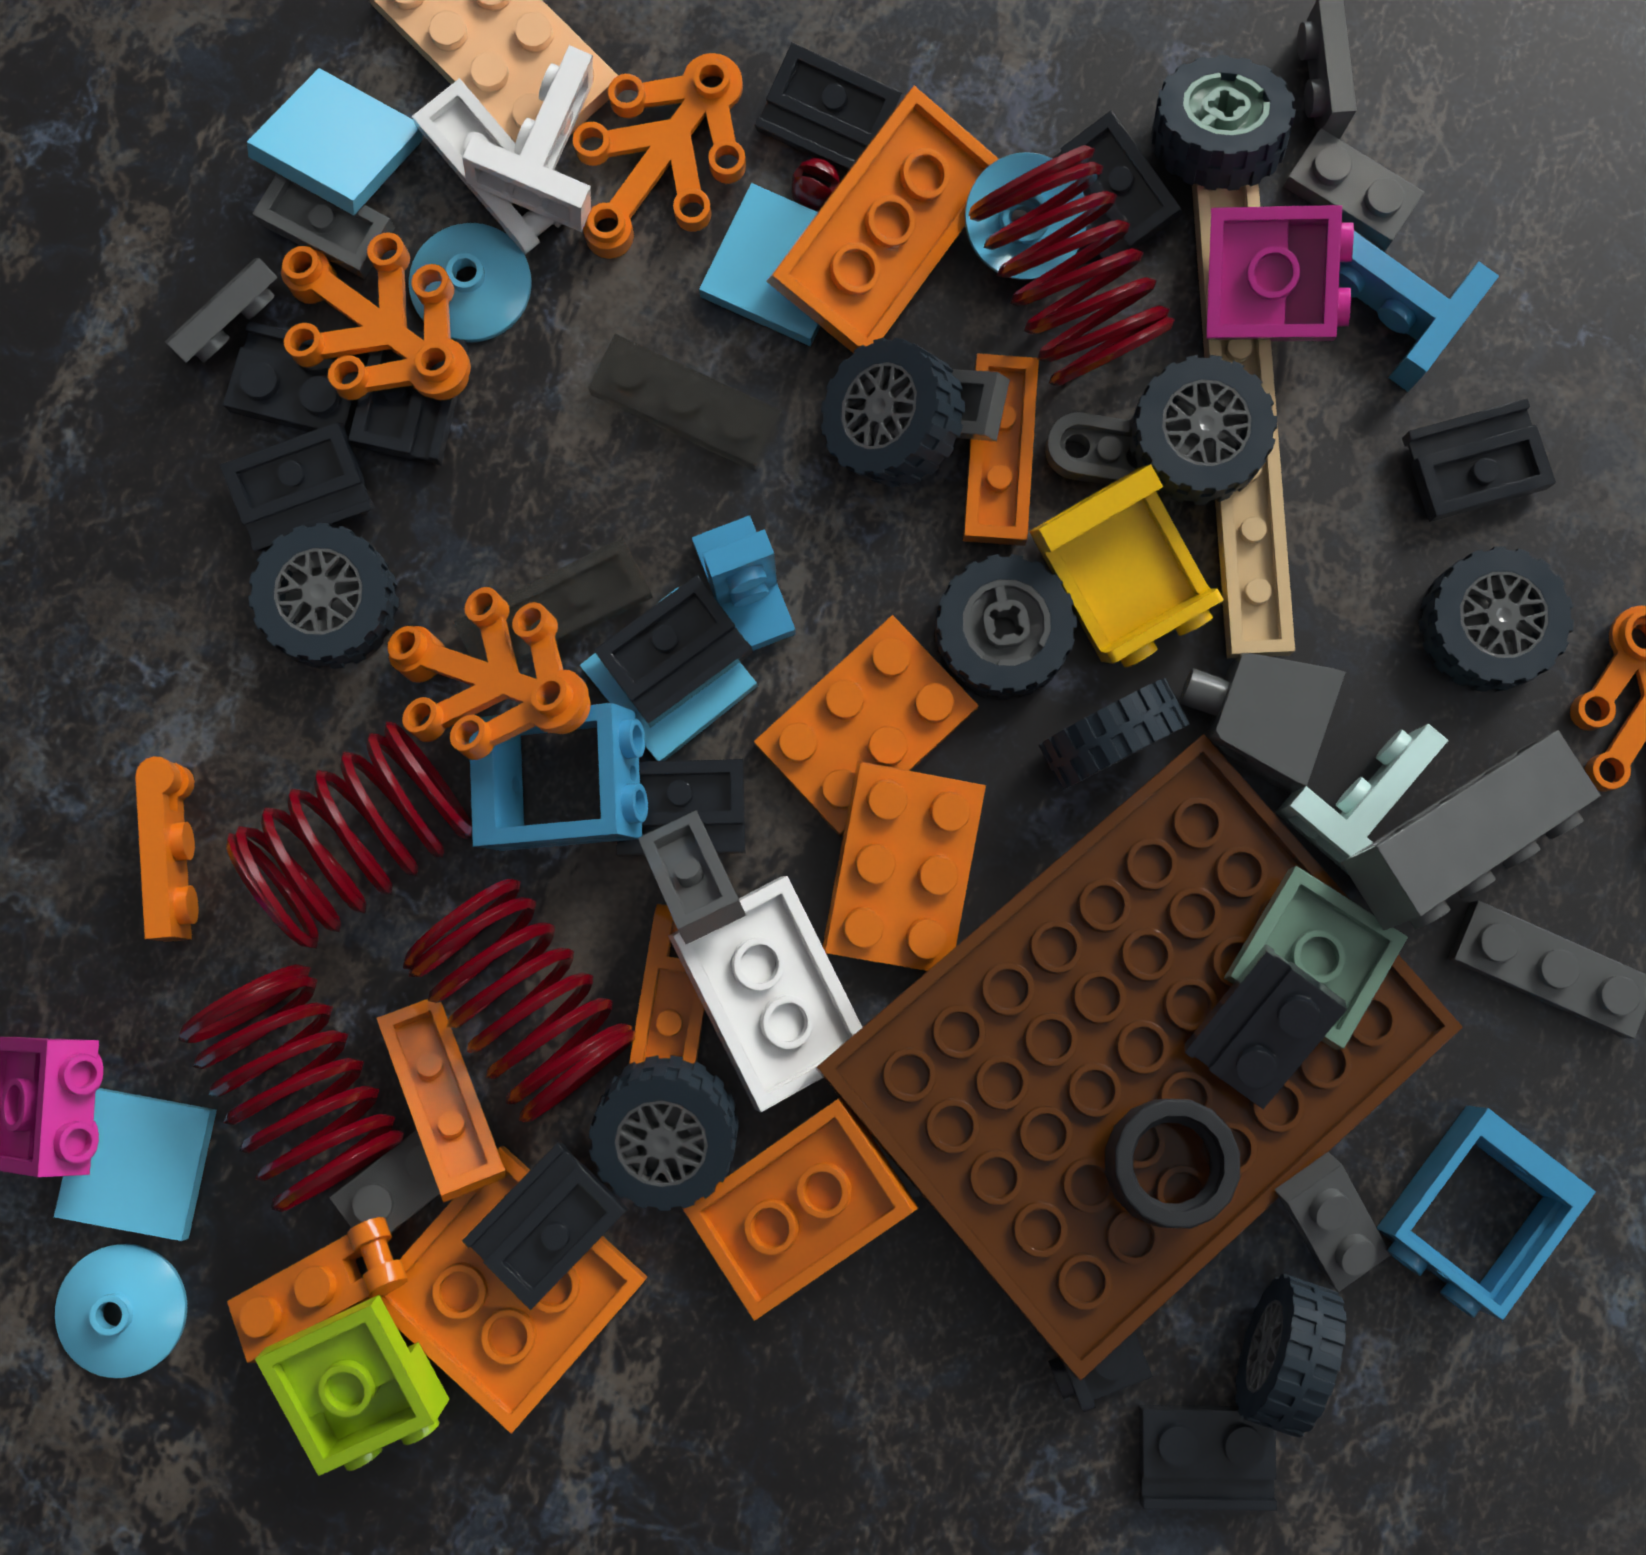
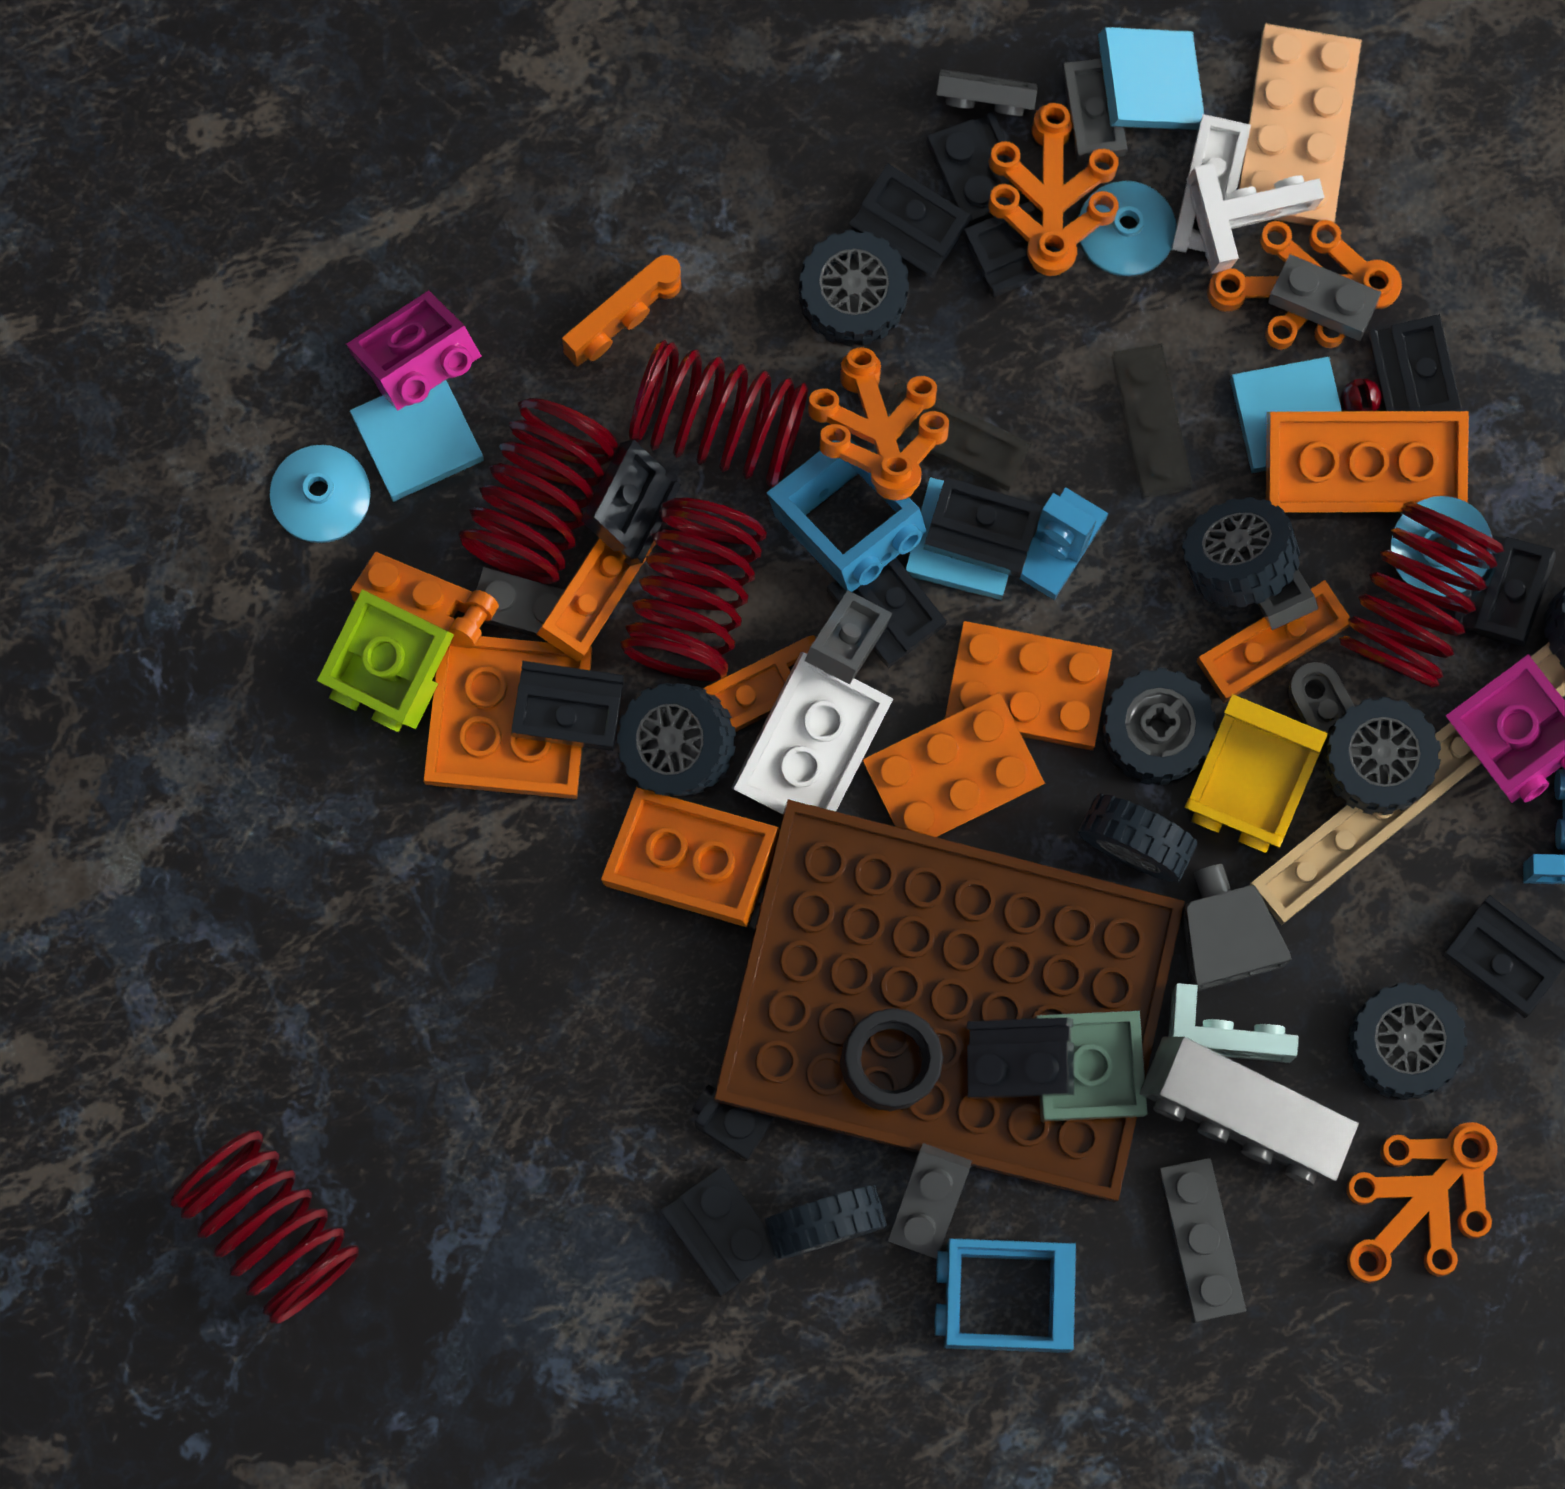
camera: 50 degrees right, 5 degrees down
(374, 999) = (629, 502): none -> black plate
(691, 139) = (1324, 297): none -> dark grey plate

